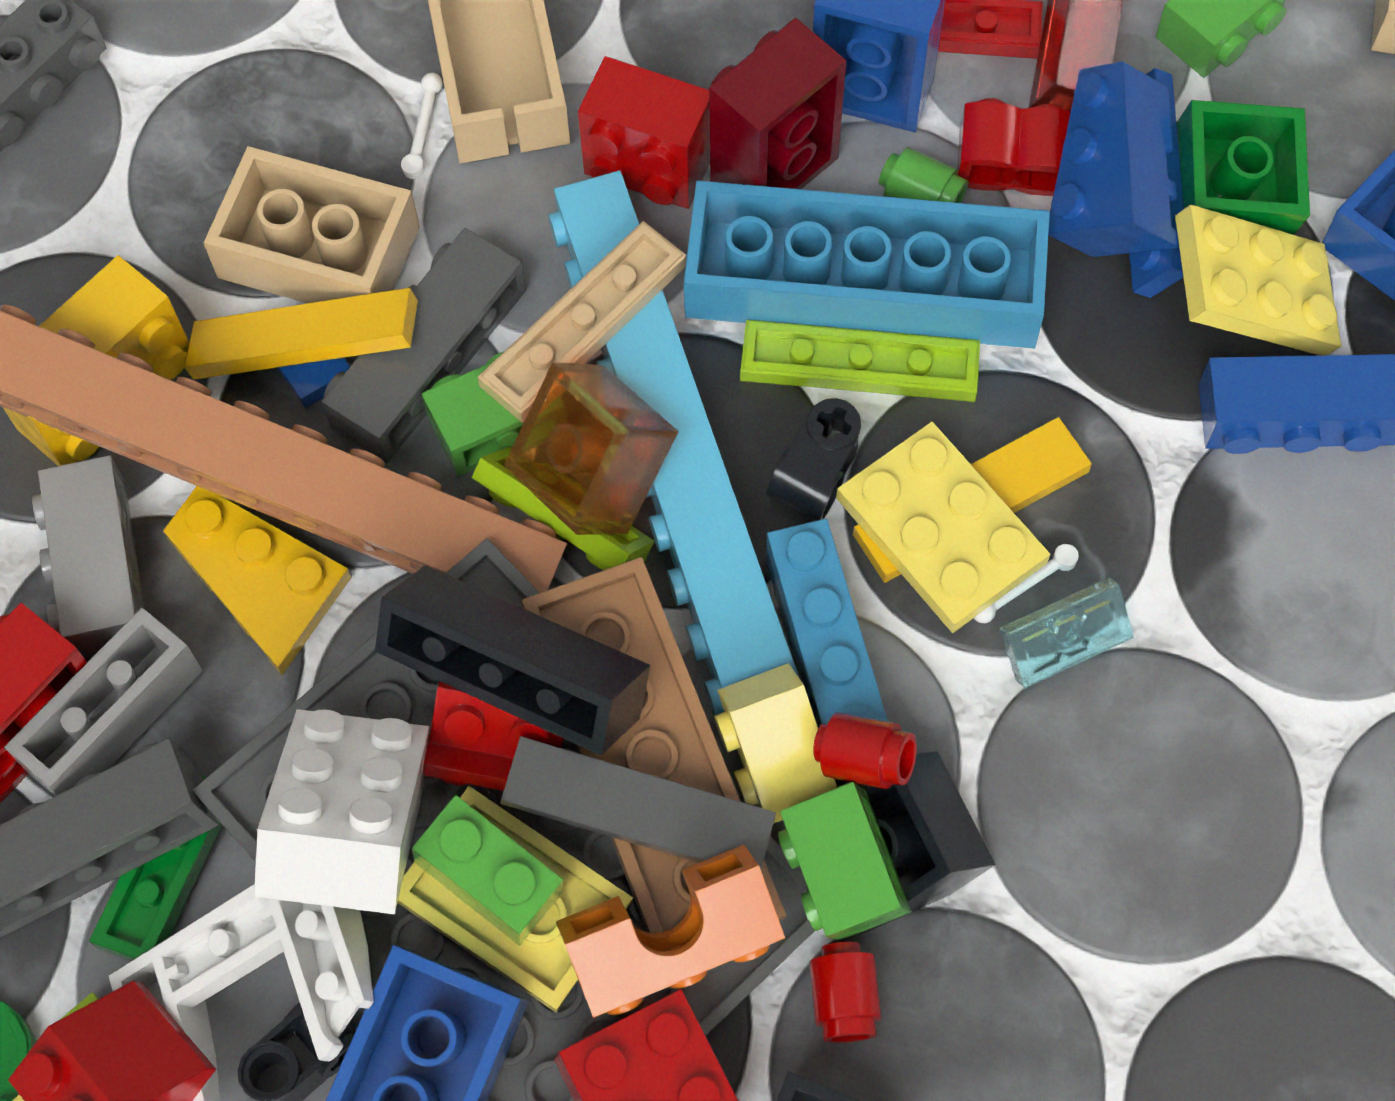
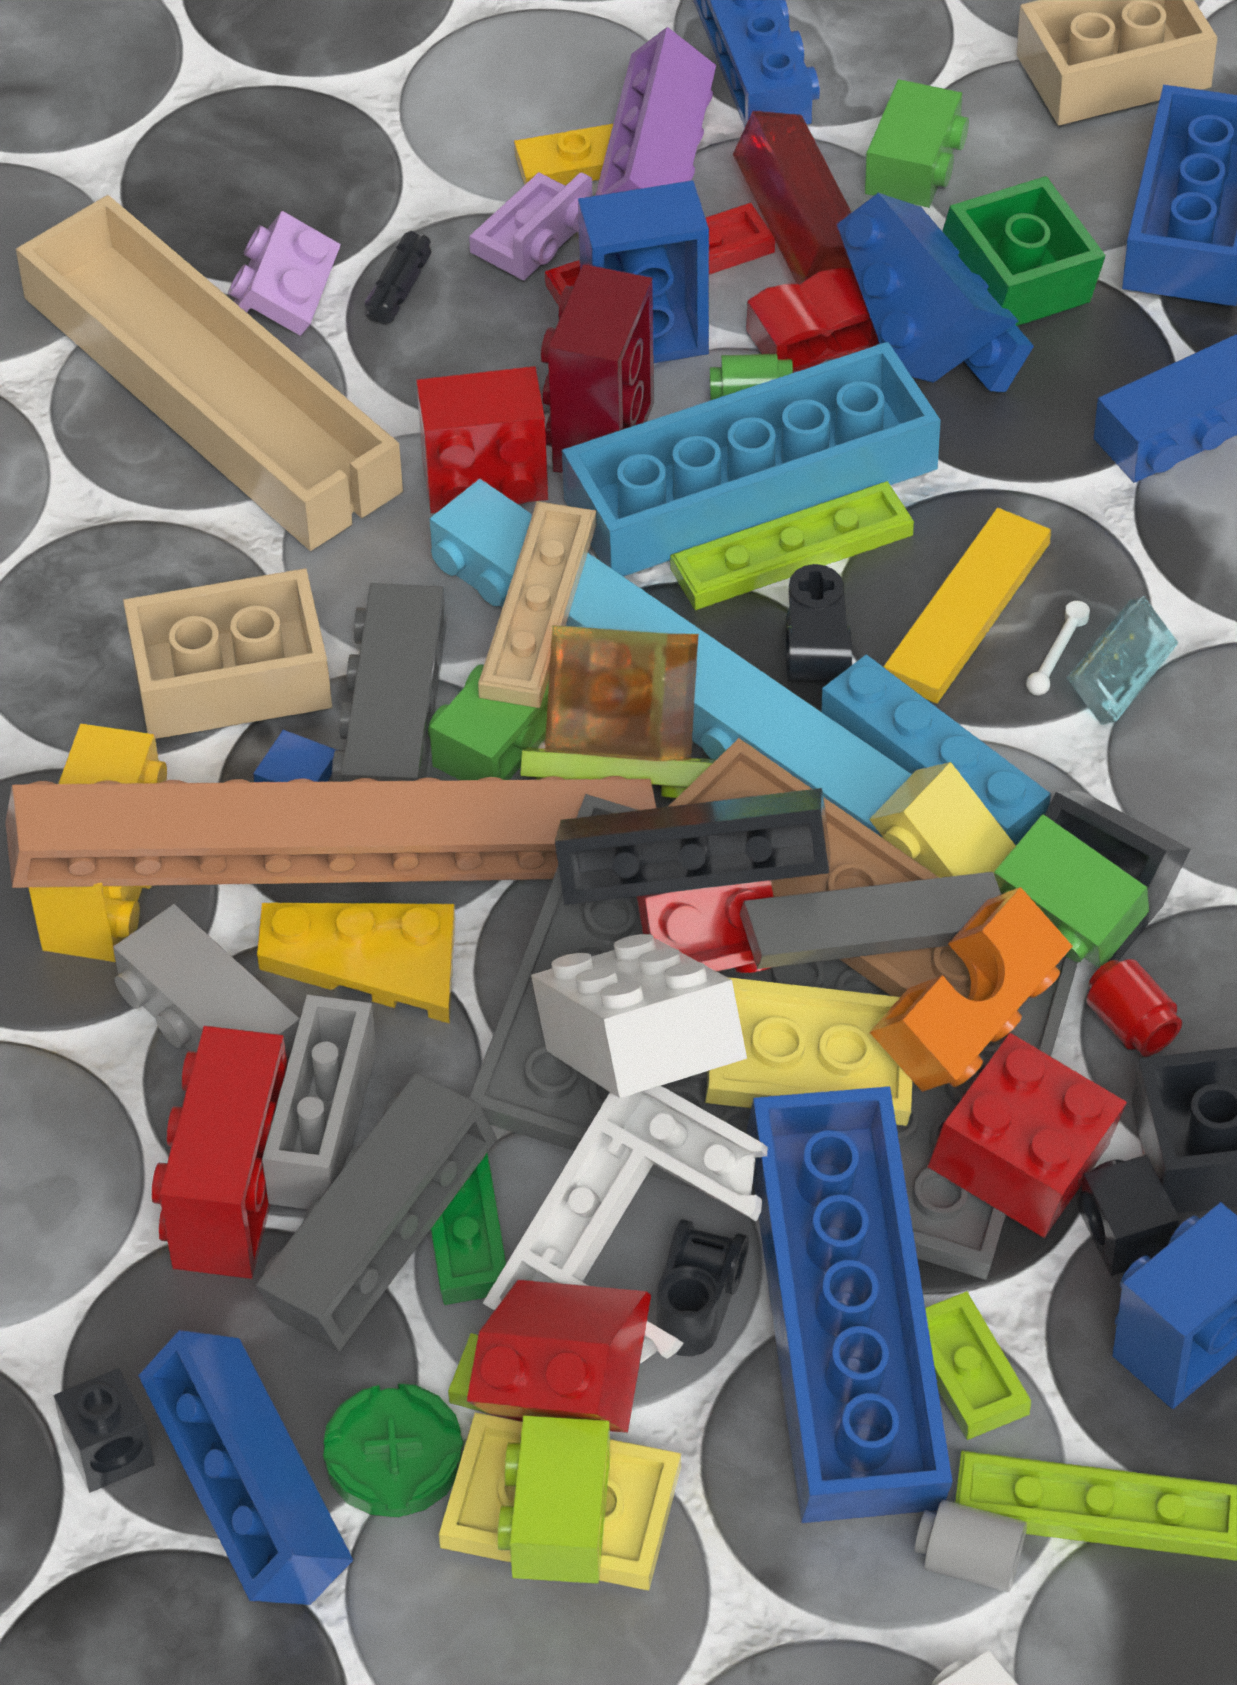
camera: 30 degrees left, 15 degrees down
(302, 334) = (293, 722): yellow tile -> none
(412, 164) = (235, 500): white hinge -> none
(487, 870) = (796, 1014): bright green brick -> none
(865, 751) = (1034, 787): red brick -> none
(942, 526) = (961, 628): light yellow plate -> none
(1257, 281) = (1094, 324): light yellow plate -> none

